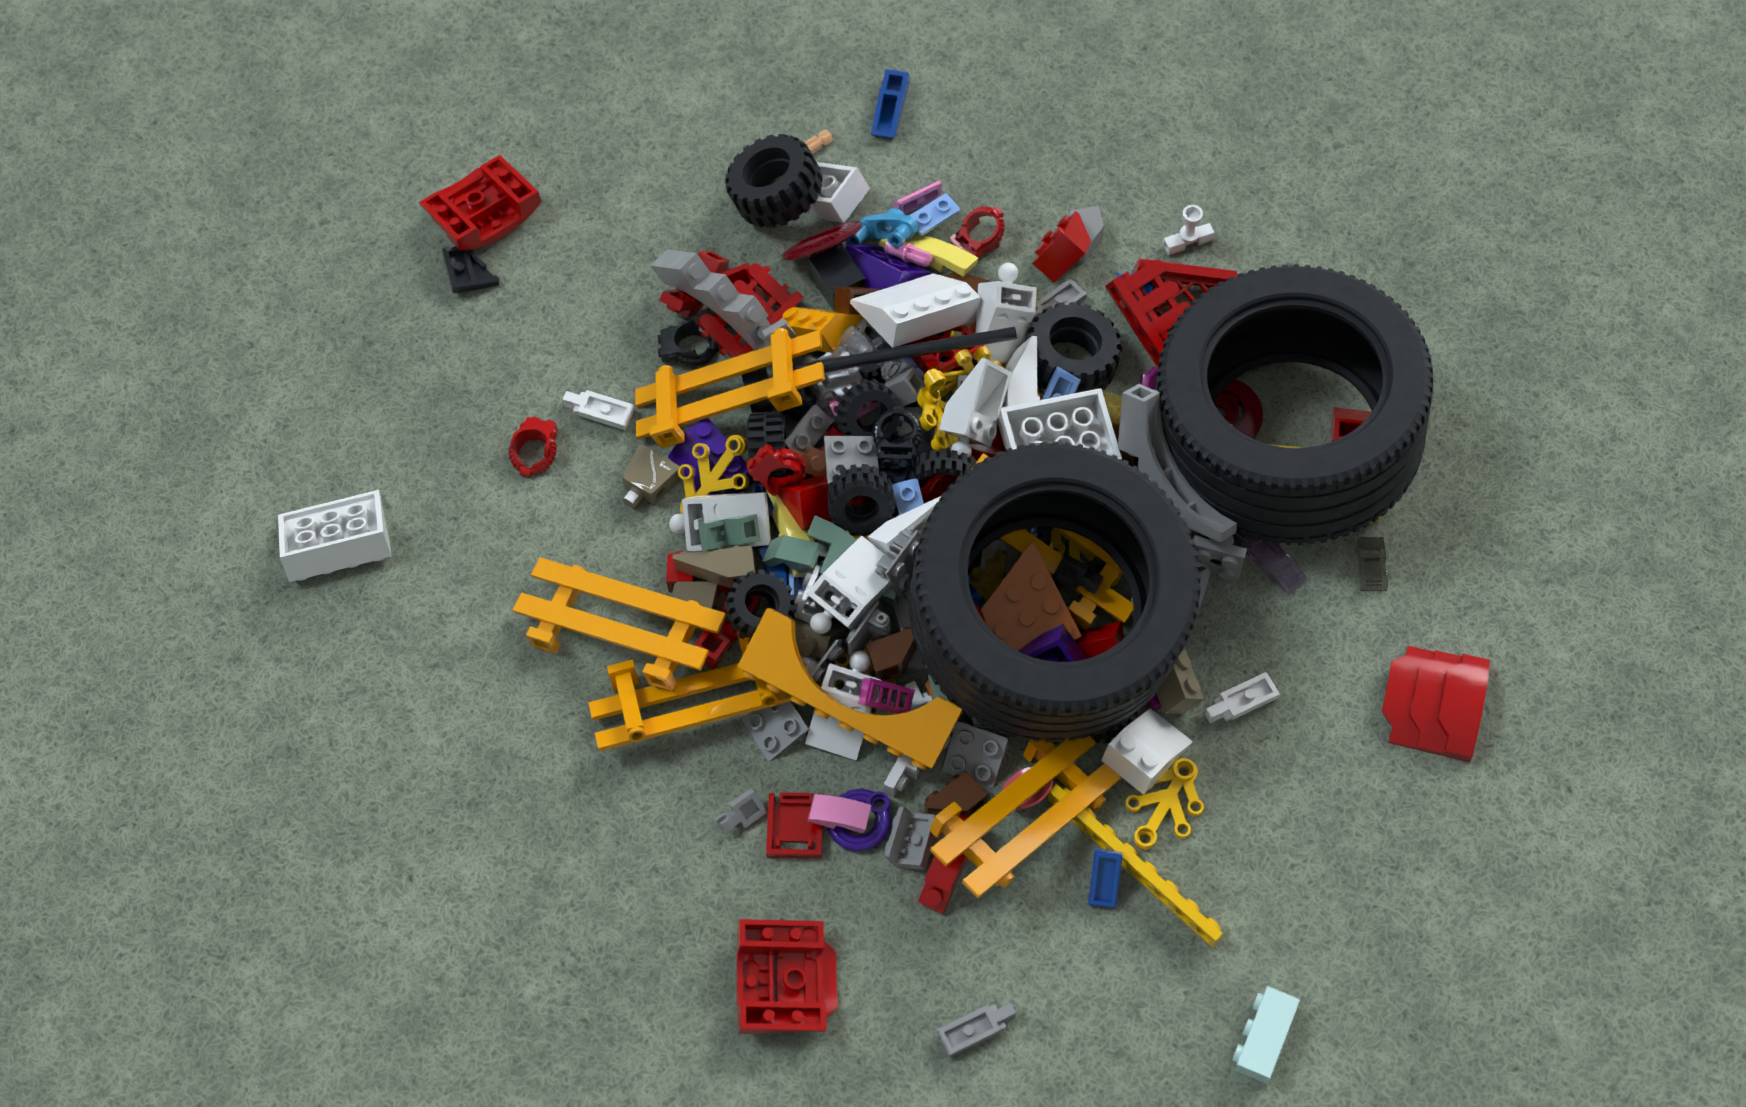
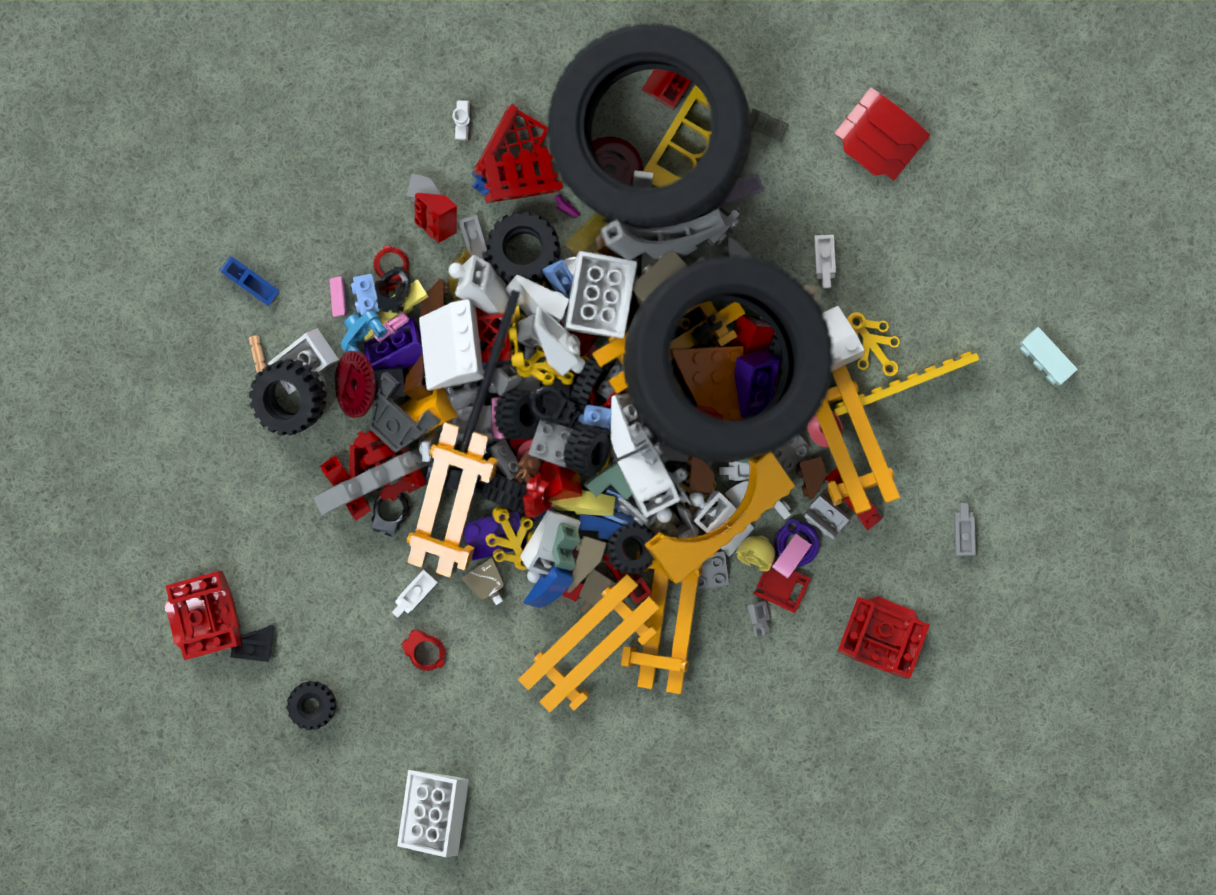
camera: 75 degrees left, 25 degrees up
(415, 338) = (298, 712): none -> black tyre
(670, 539) = (549, 587): none -> blue slope
(792, 551) = (599, 511): sand green slope -> none
(794, 289) = (392, 422): none -> dark grey wing
(825, 769) = (756, 551): none -> light yellow cylinder
(867, 693) = (723, 502): dark pink slope -> none
(950, 235) = (393, 303): none -> black piece
(1105, 878) = (907, 407): blue tile -> none

